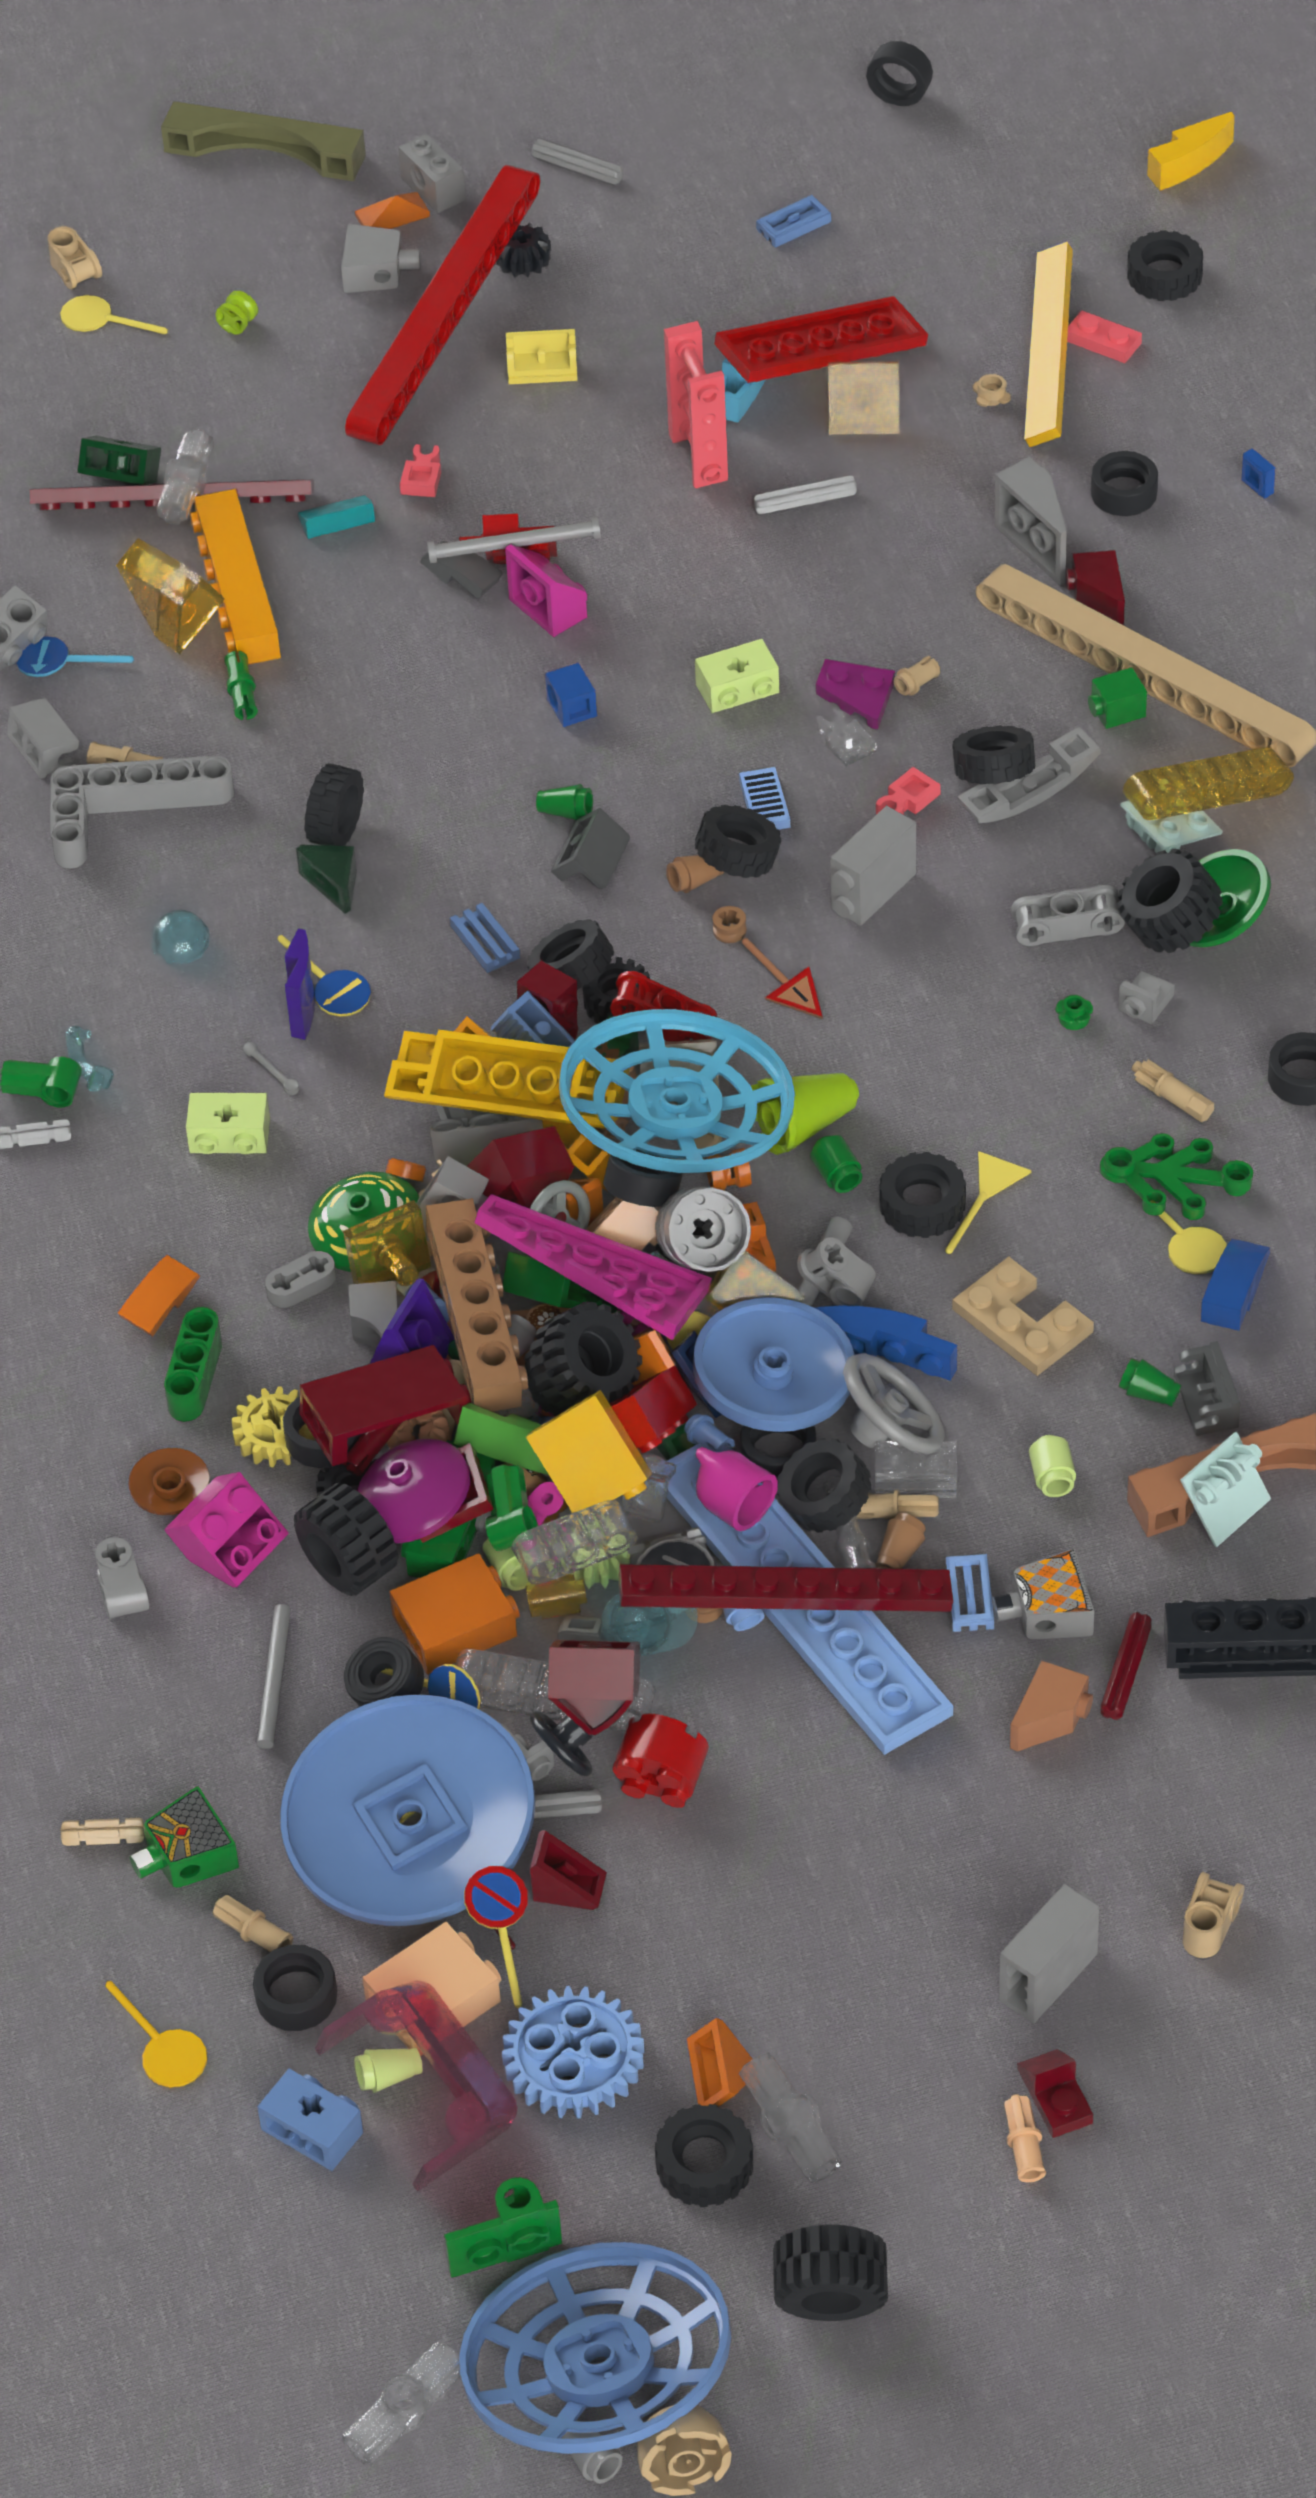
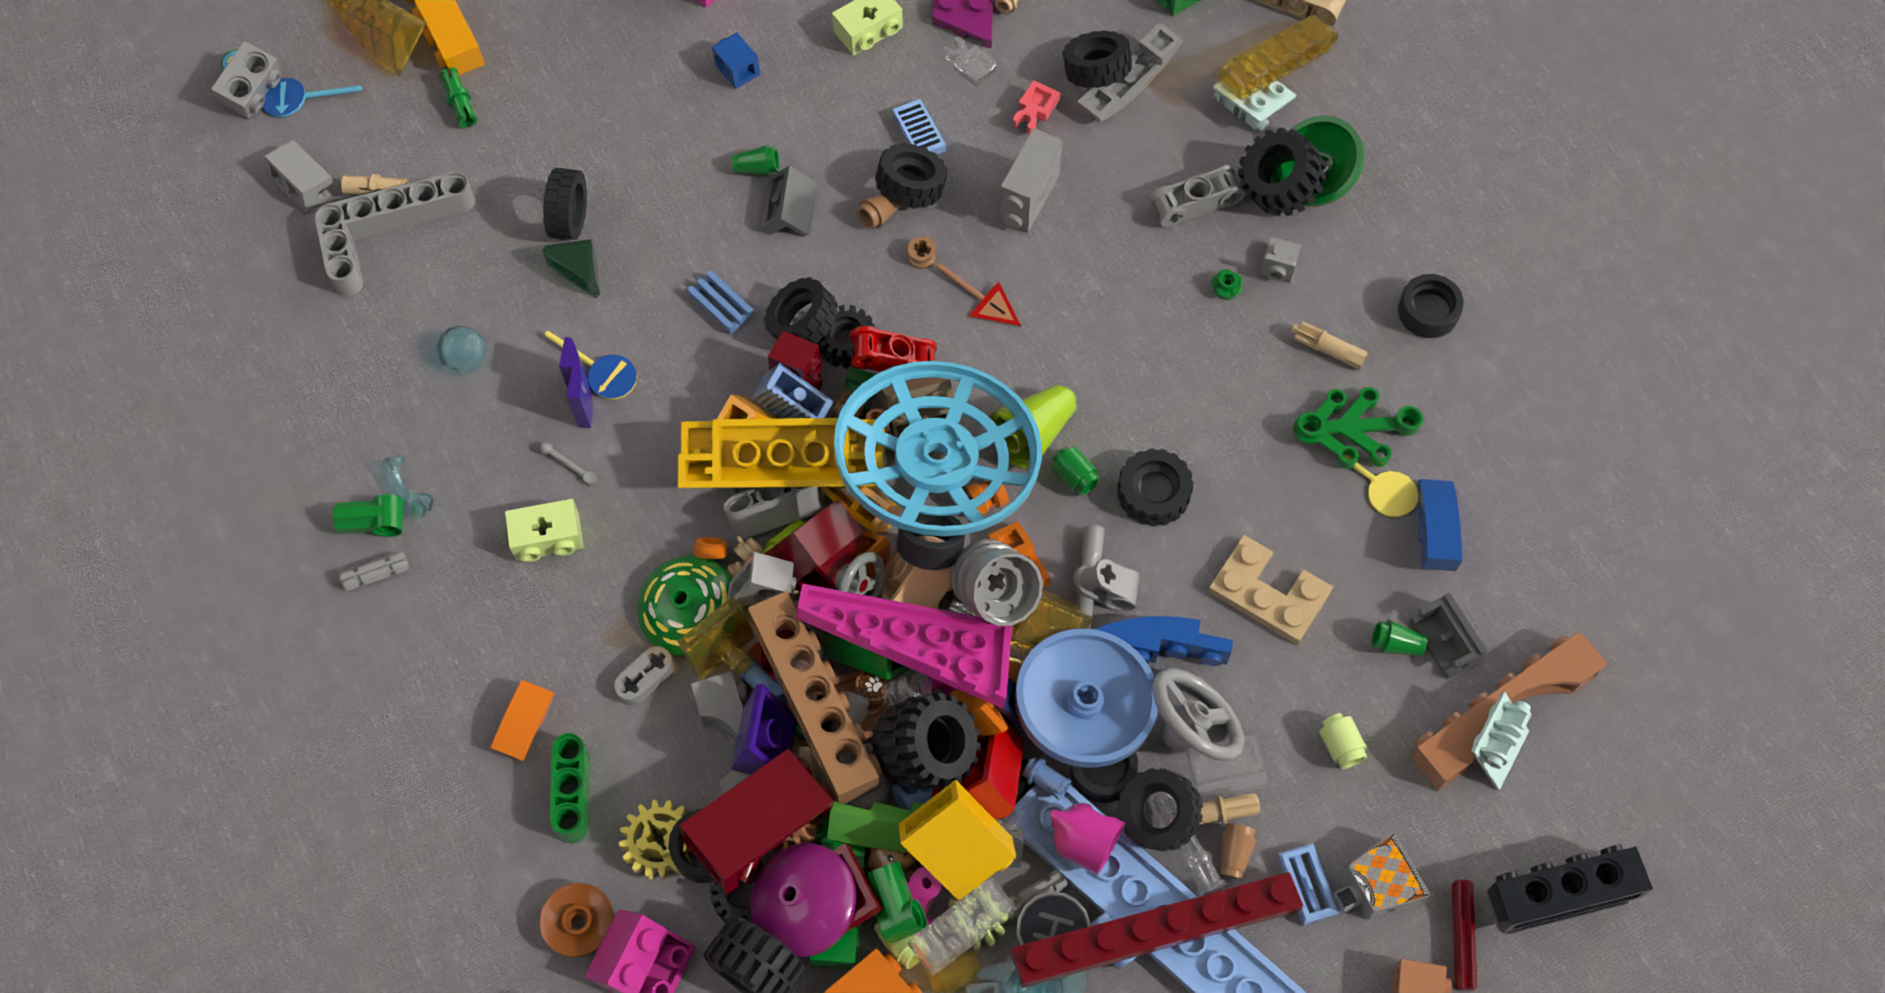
camera: 15 degrees left, 15 degrees up
(993, 1177) = (1206, 455): light yellow piece -> none

